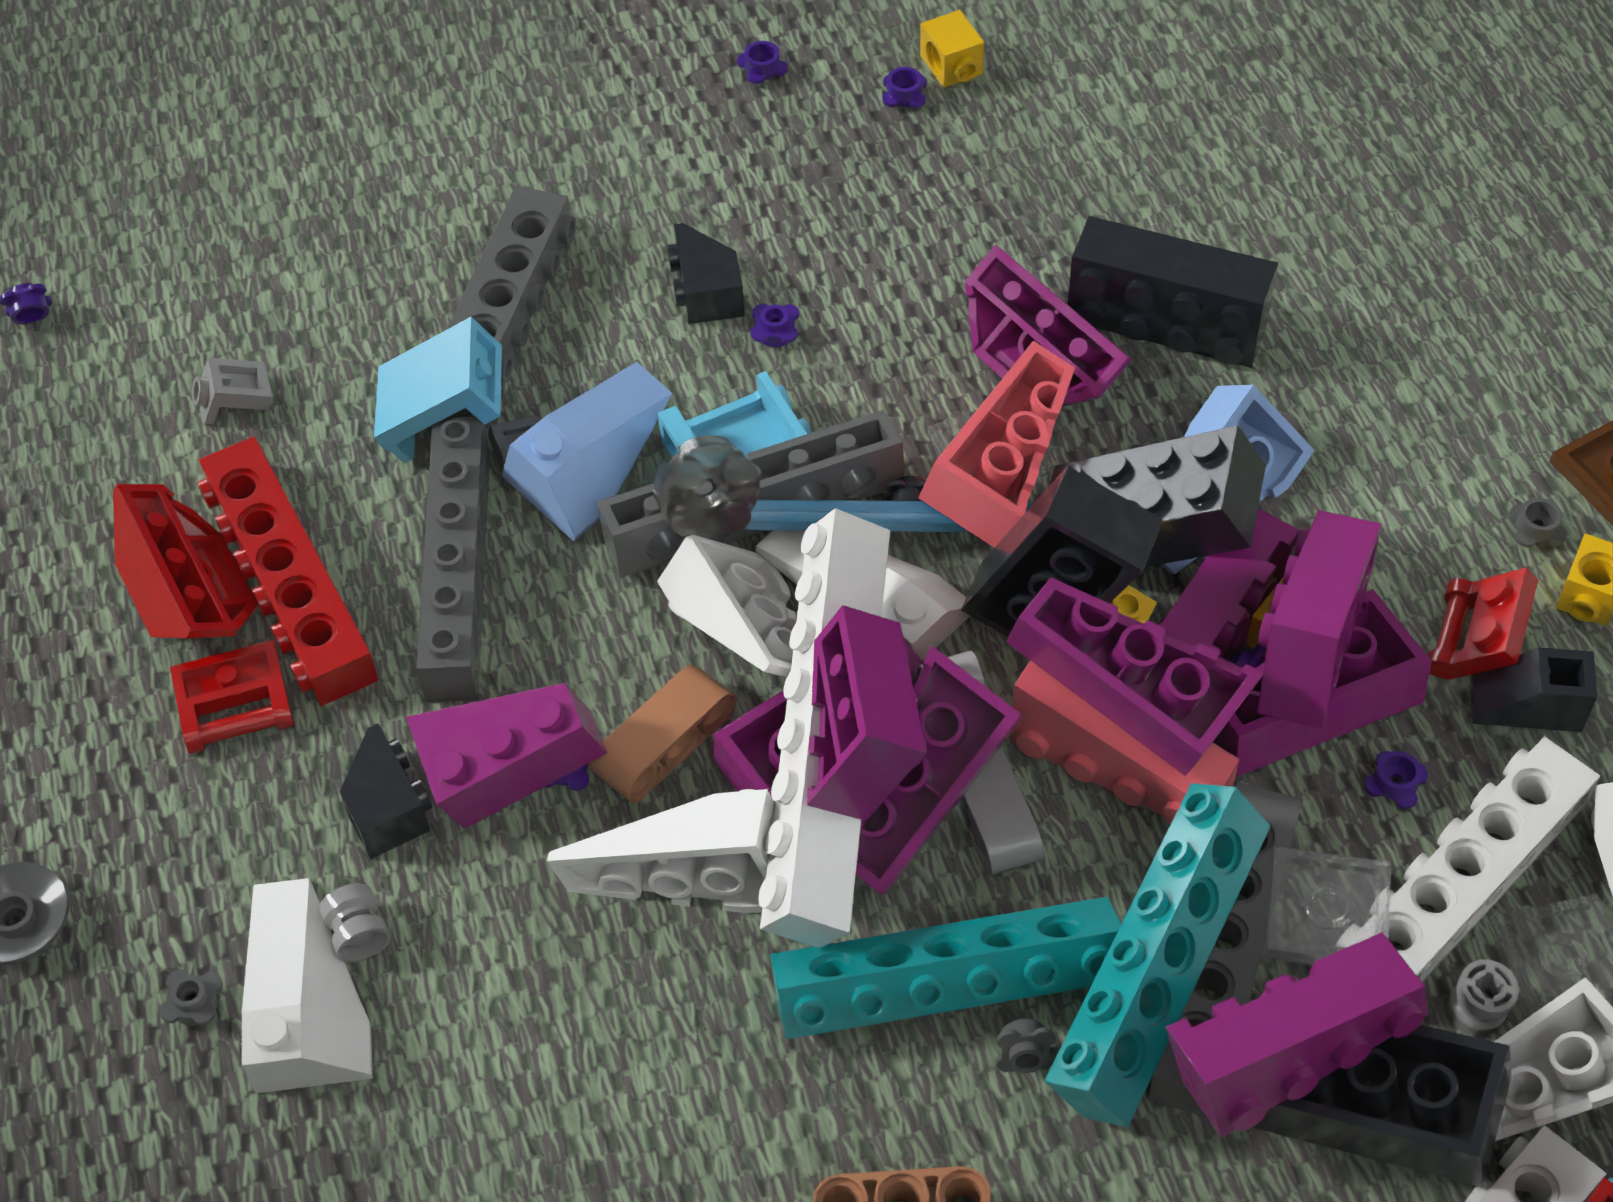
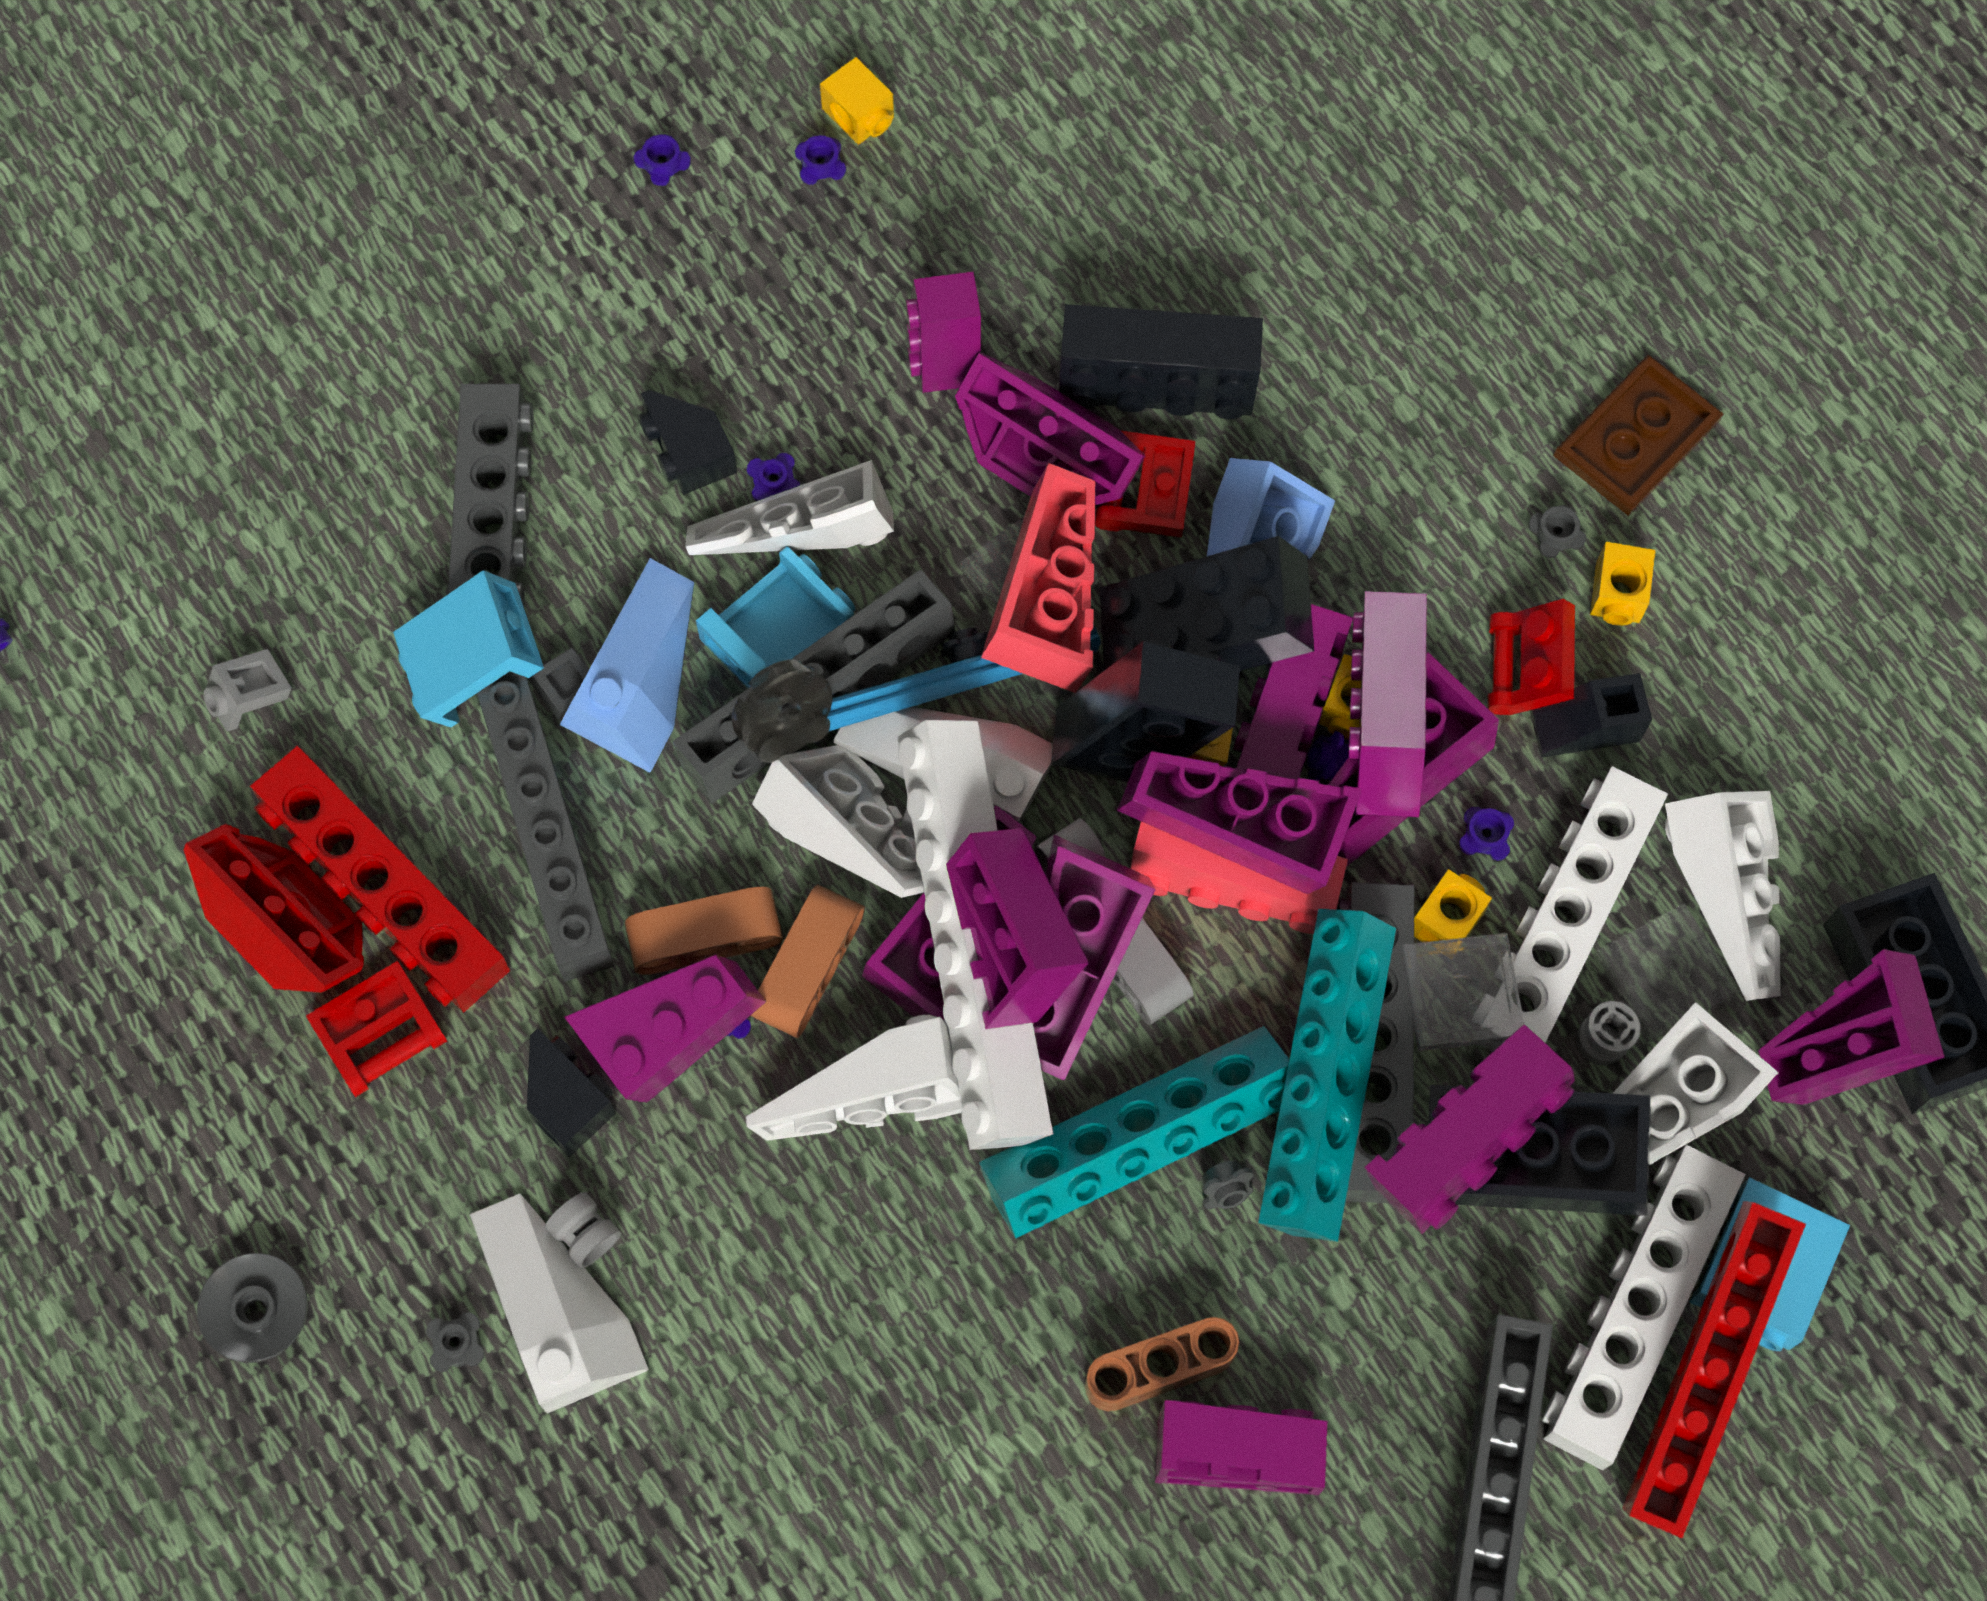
camera: 20 degrees left, 15 degrees up
(605, 680) = (703, 928): none -> nougat beam
(807, 356) = (818, 515): none -> white wedge
(969, 216) = (943, 330): none -> magenta wedge
(1142, 408) = (1161, 489): none -> red plate
(1343, 820) = (1460, 890): none -> yellow brick

